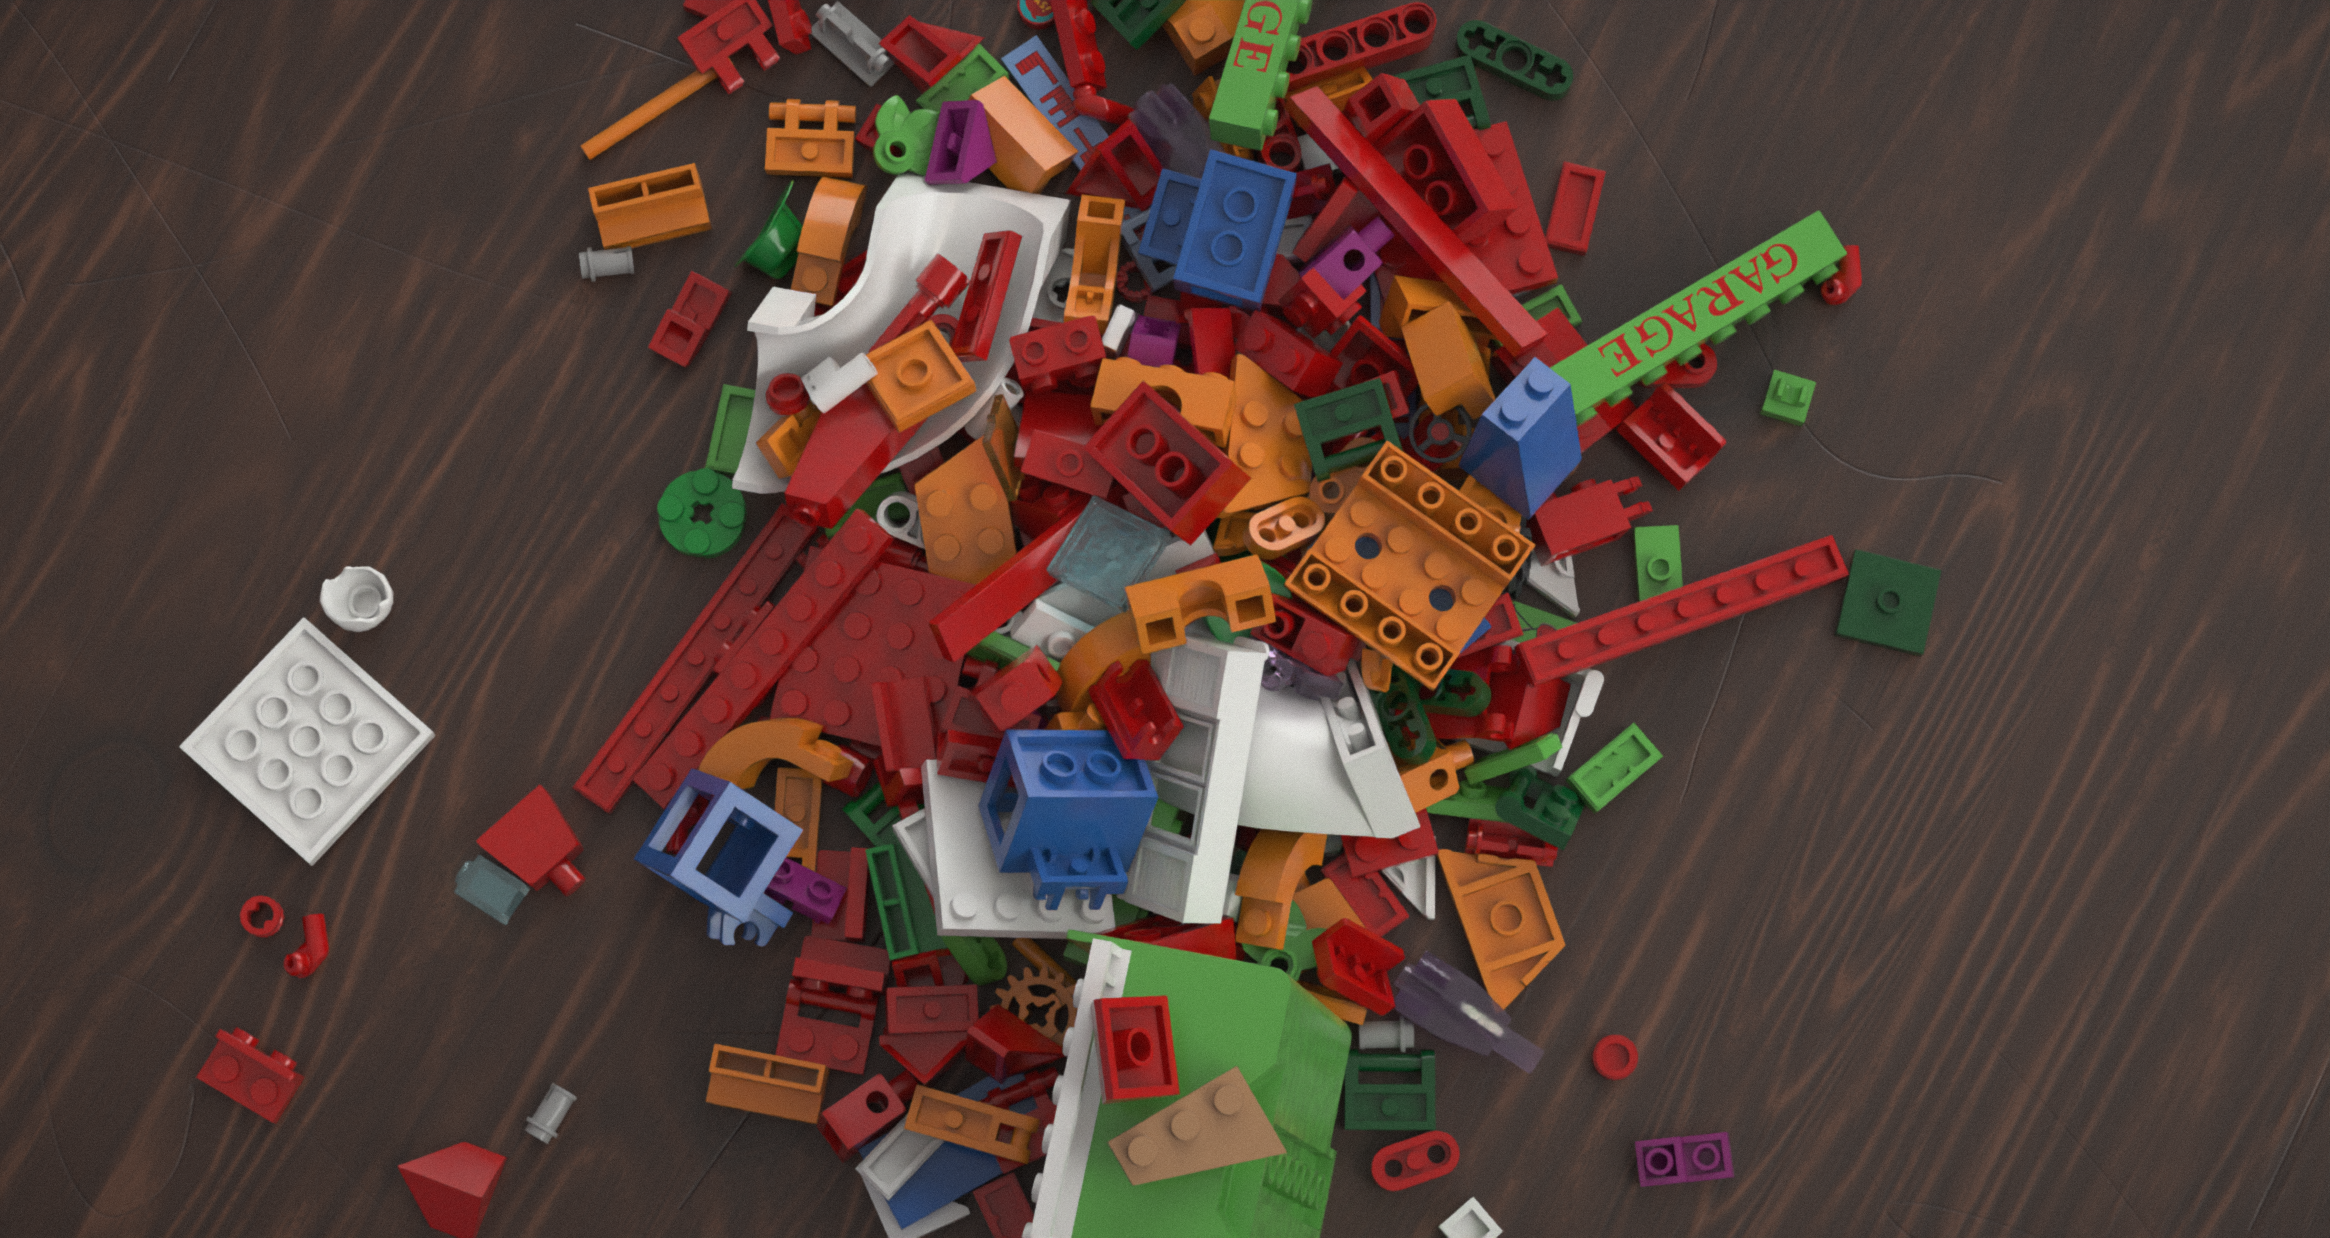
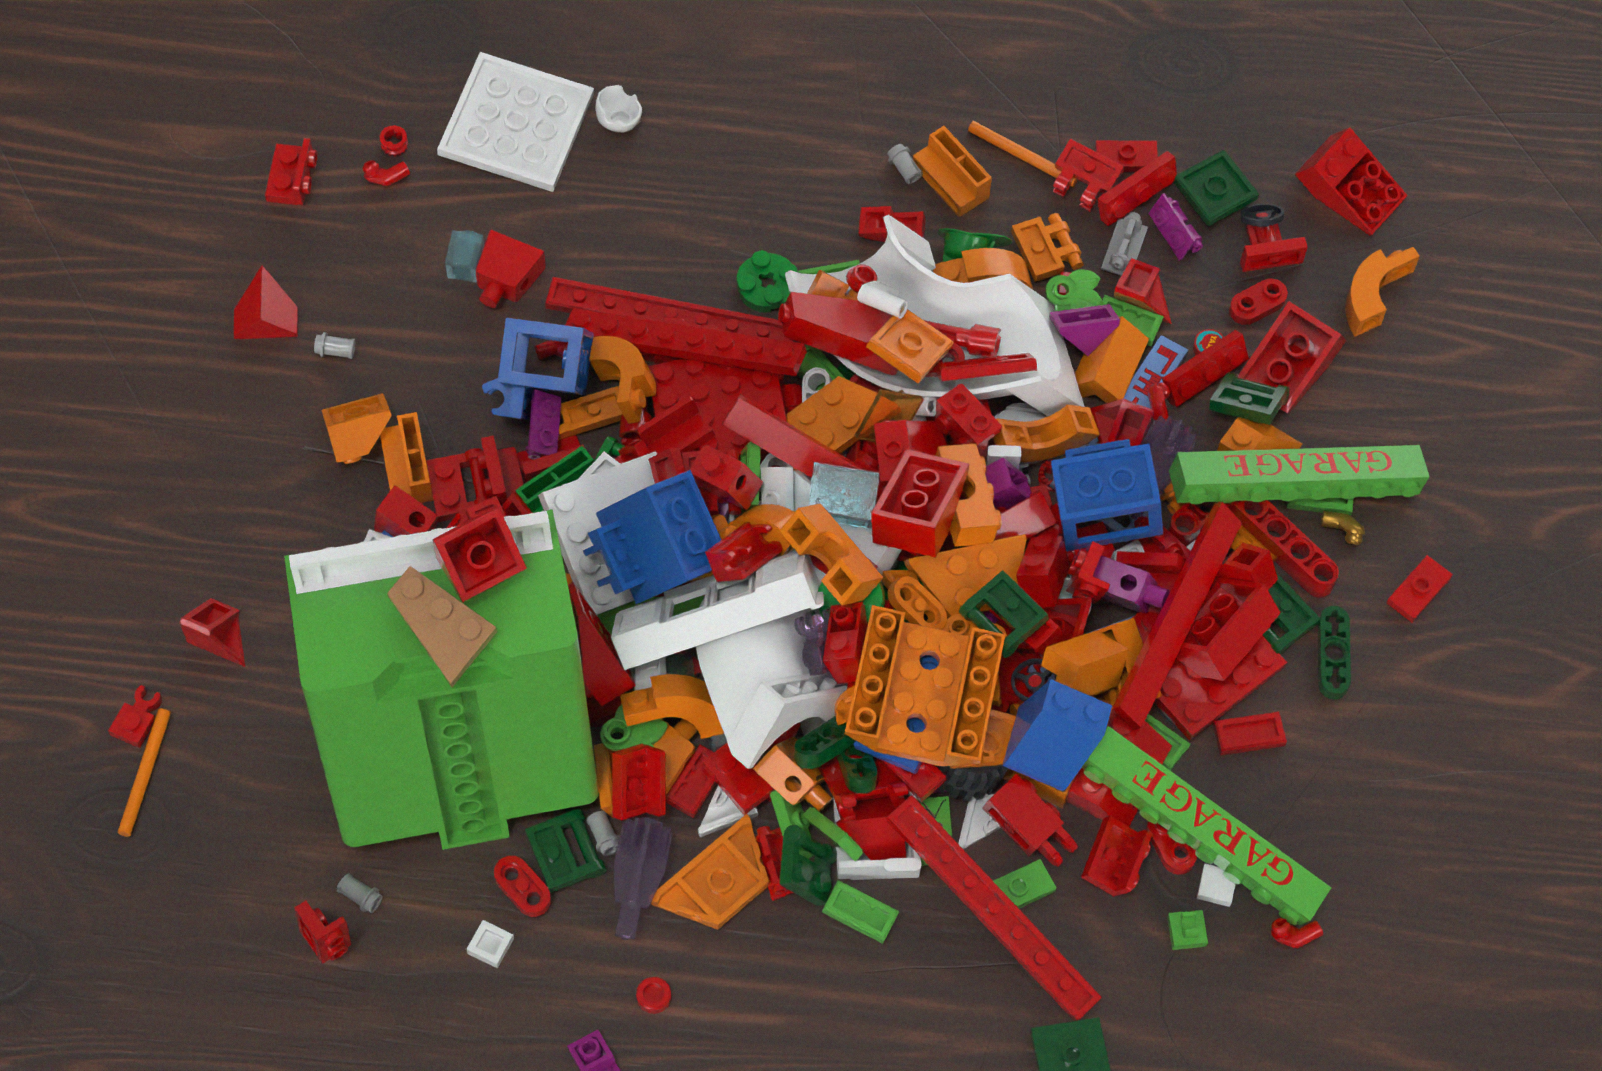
camera: 65 degrees right, 15 degrees down
(685, 1127) = (356, 426): none -> orange slope
(1750, 341) = (1215, 886): none -> white tile

